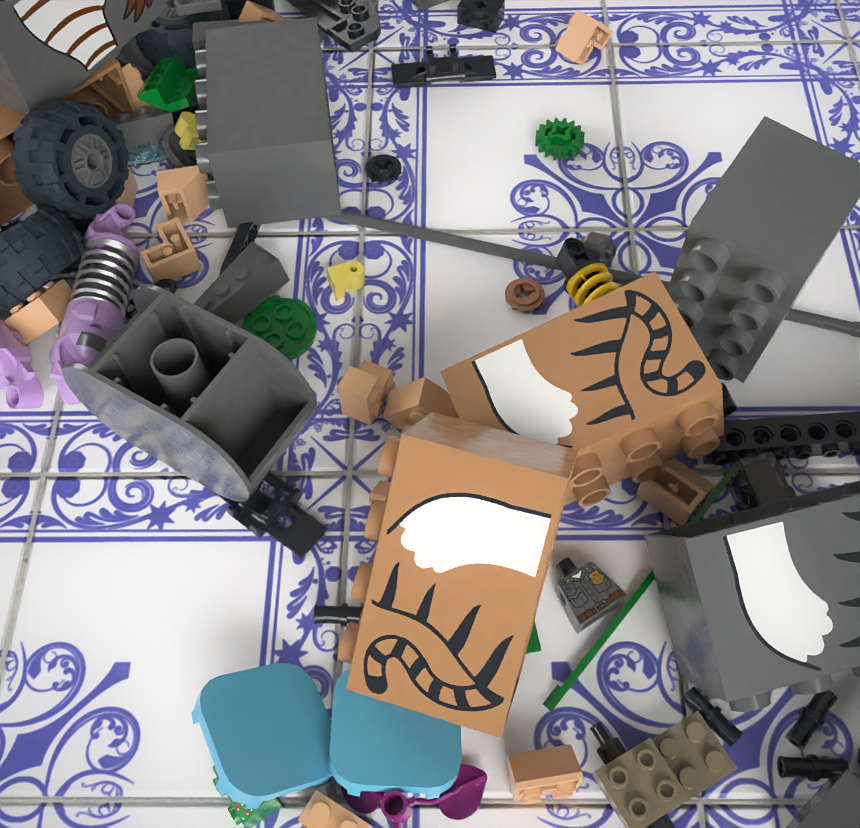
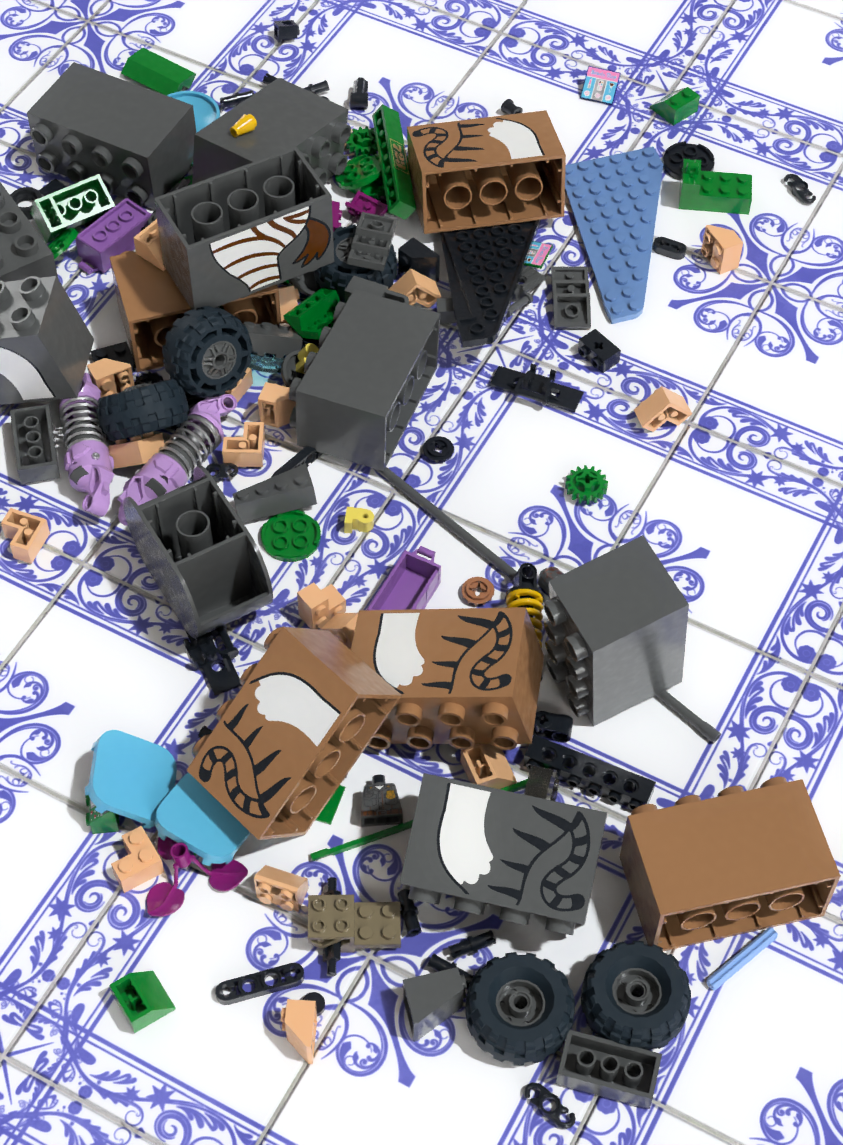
camera: 25 degrees right, 5 degrees down
(451, 323) = (409, 582): none -> medium lavender container

